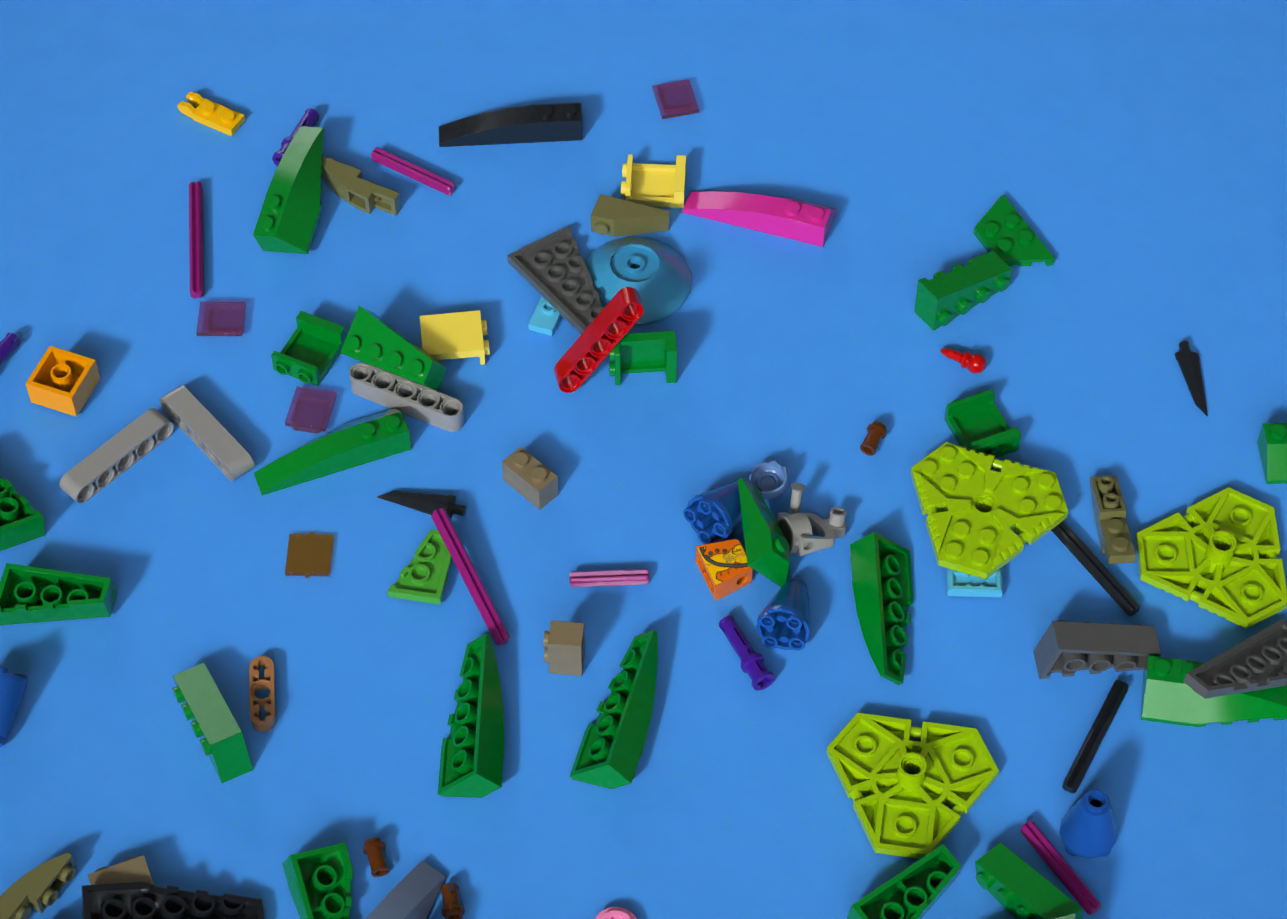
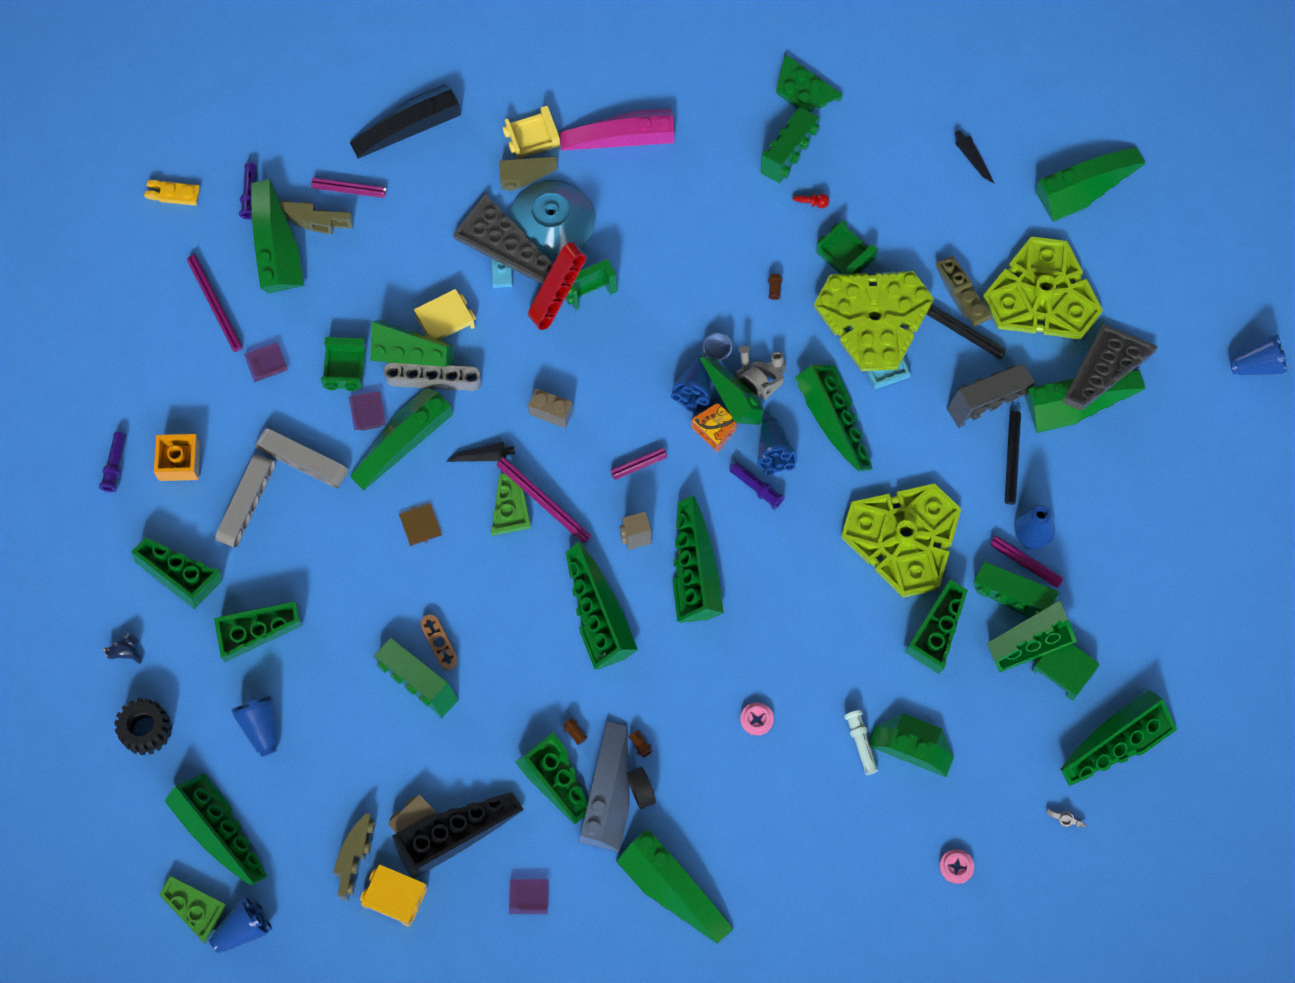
camera: 20 degrees left, 15 degrees up
(675, 99) = (515, 56): piece -> none

